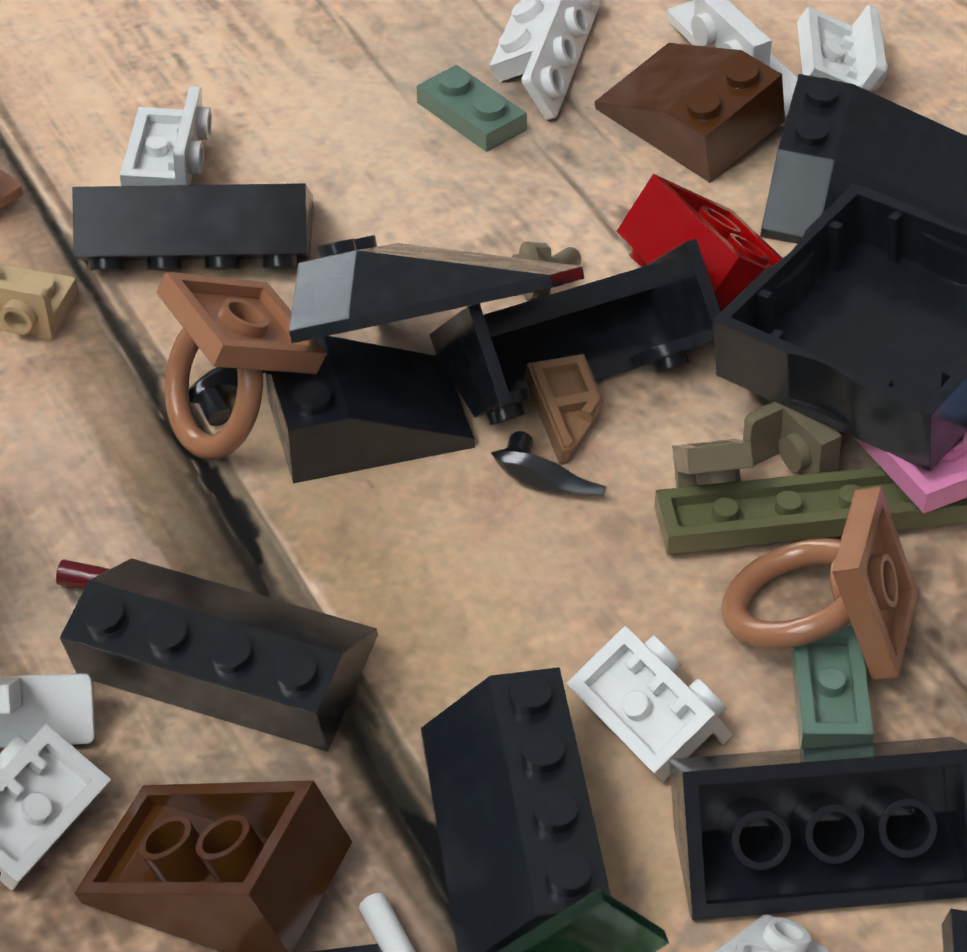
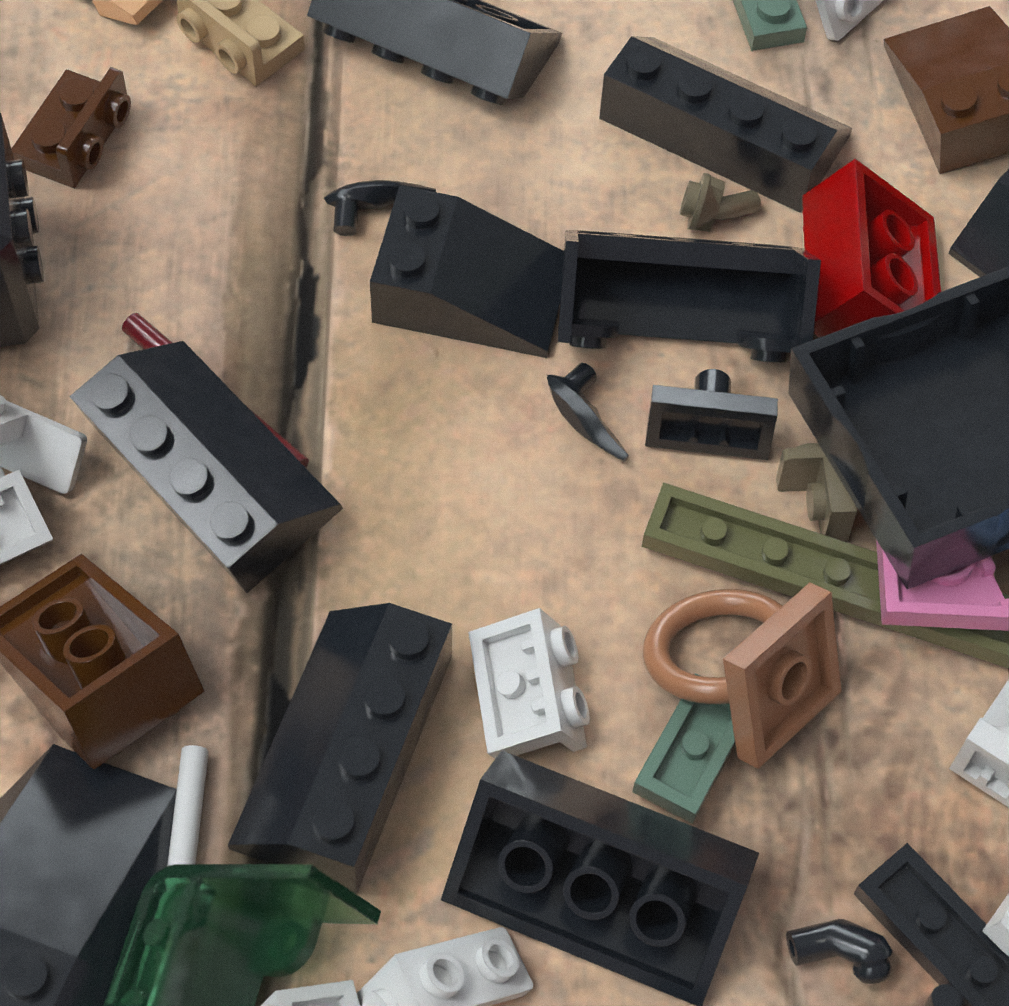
camera: 25 degrees right, 15 degrees up
(234, 327) = (365, 167): nougat tile -> none
(374, 285) = (542, 190): black wedge -> none
(503, 205) = (720, 120): none -> black slope
(565, 401) = (649, 351): medium nougat tile -> none
(648, 425) = (711, 418): none -> black tile
(711, 462) = (725, 479): dark tan bracket -> none

